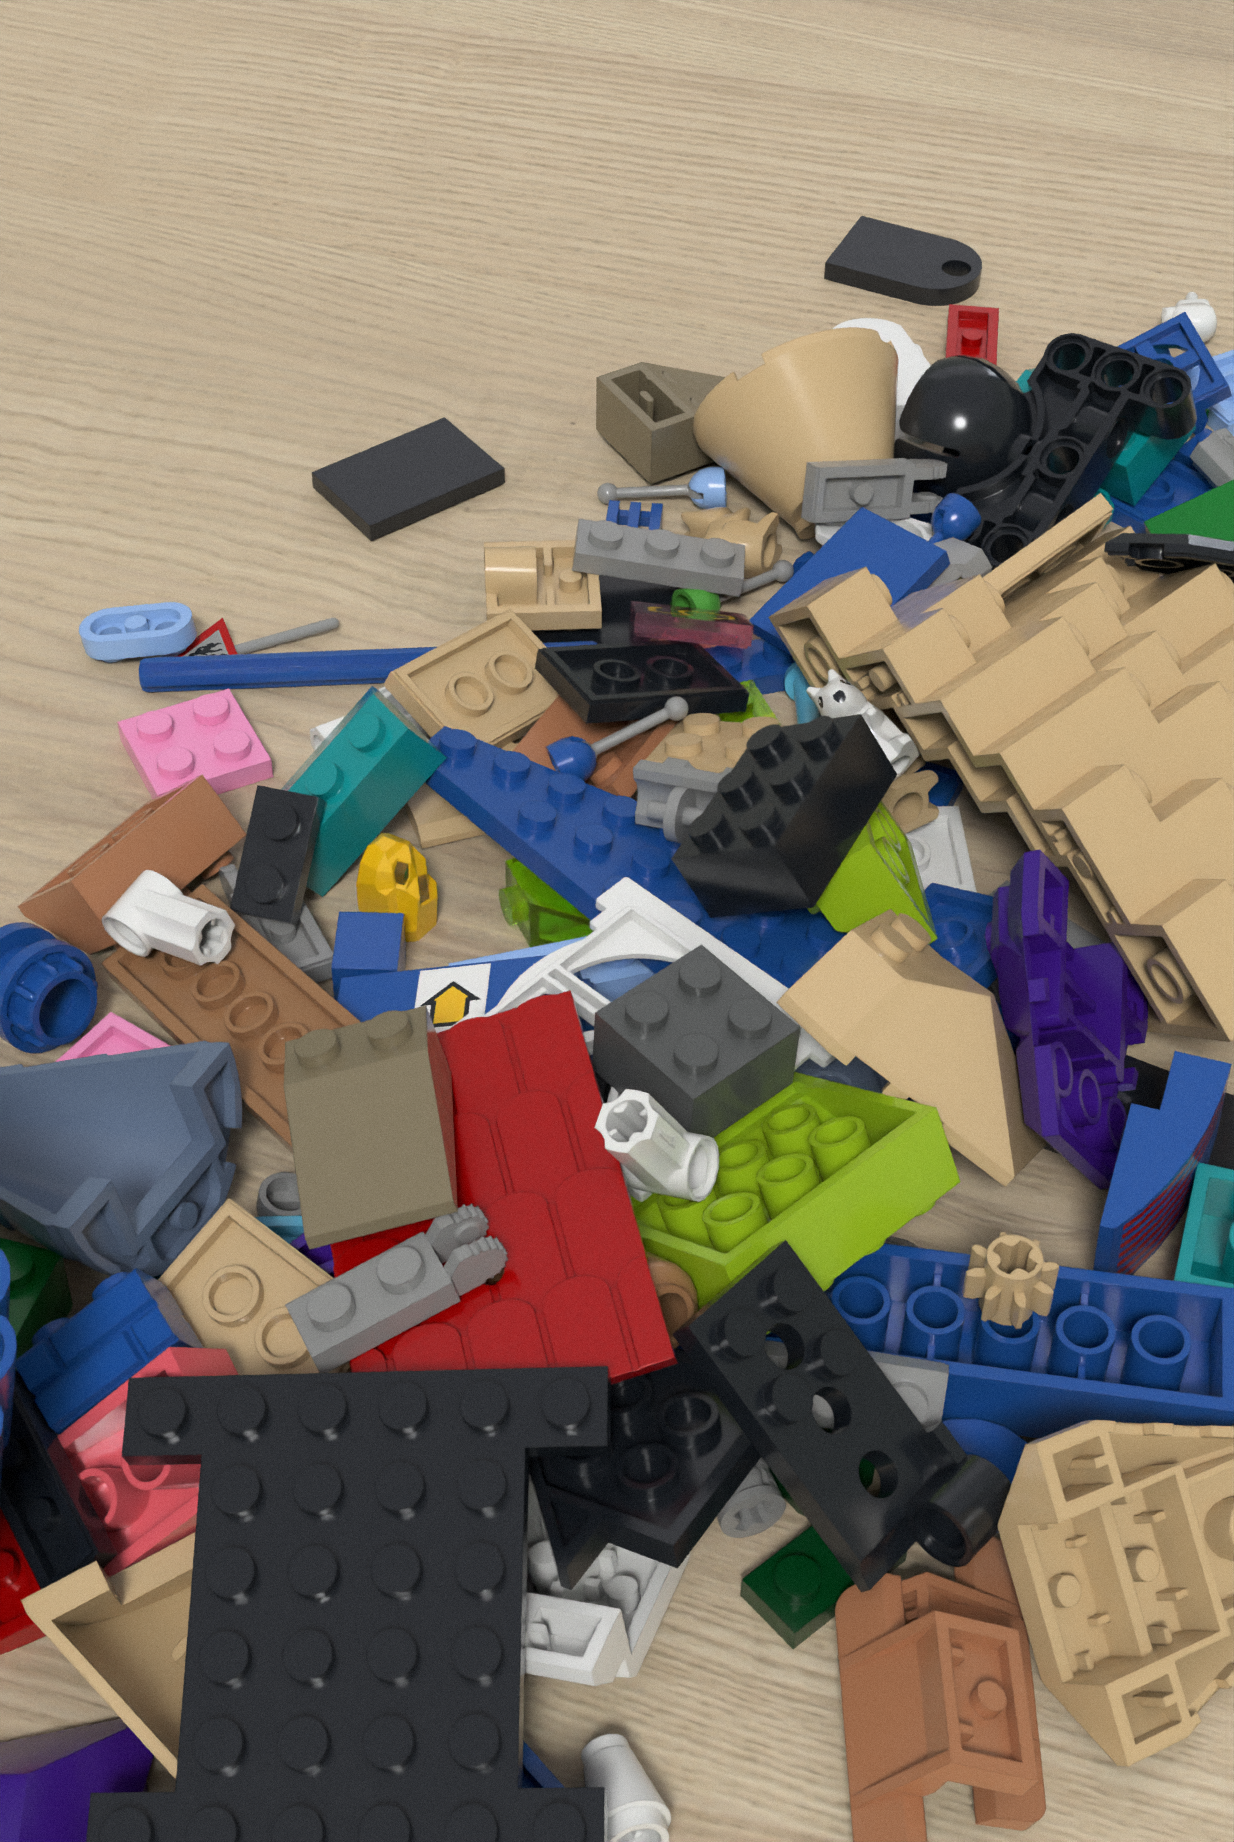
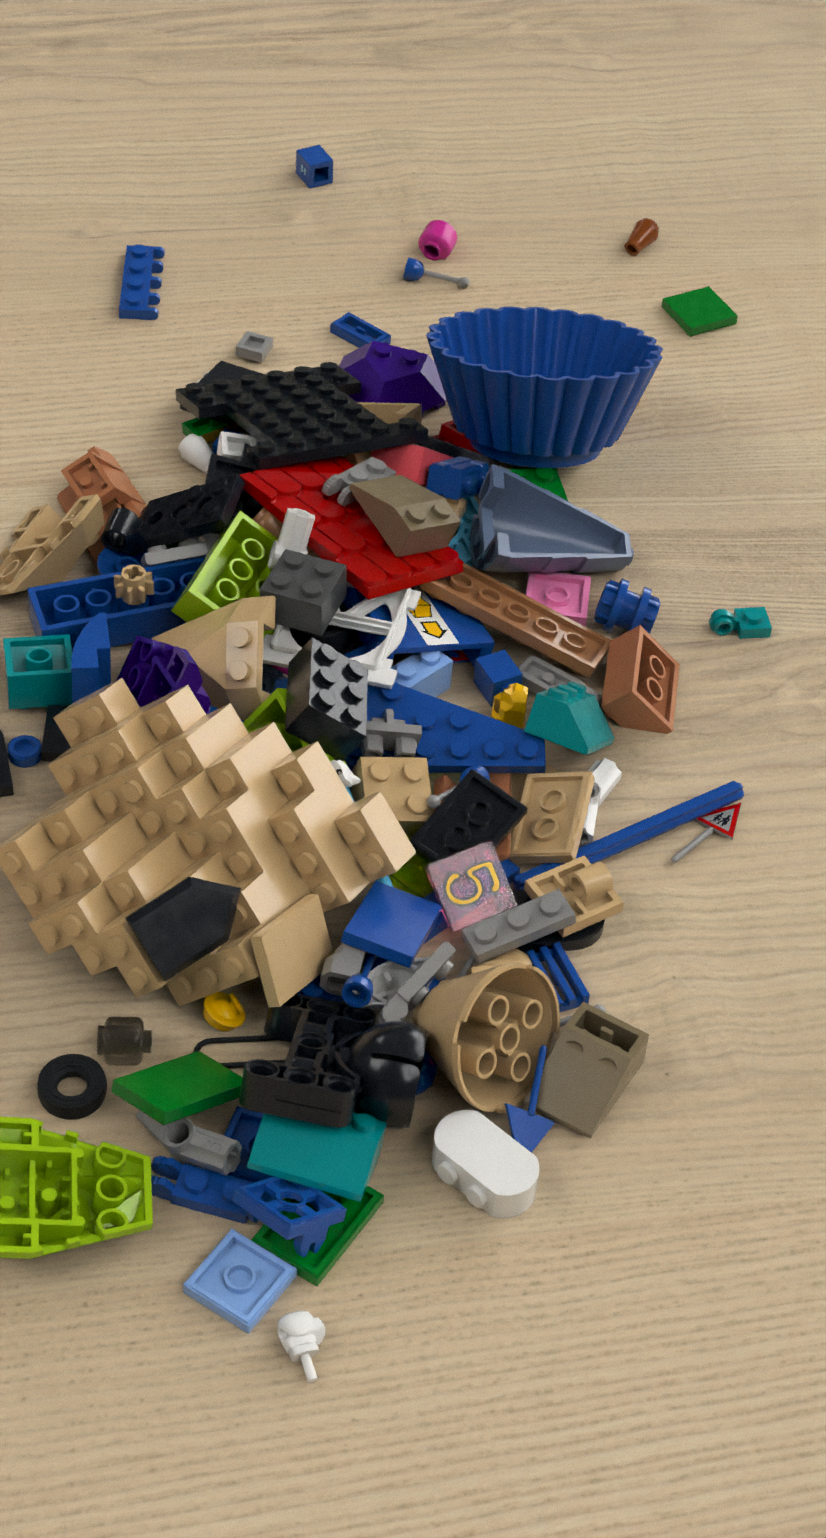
camera: 150 degrees right, 0 degrees up
(138, 631) = (761, 803): light blue plate -> none
(161, 918) = (585, 633): white piece -> none
(193, 740) = (675, 763): bright pink plate -> none
(277, 855) = (565, 671): black plate -> none
(408, 478) = (721, 976): black tile -> none
(905, 264) = (549, 1328): black tile -> none
(972, 332) = (444, 1232): red hinge -> none

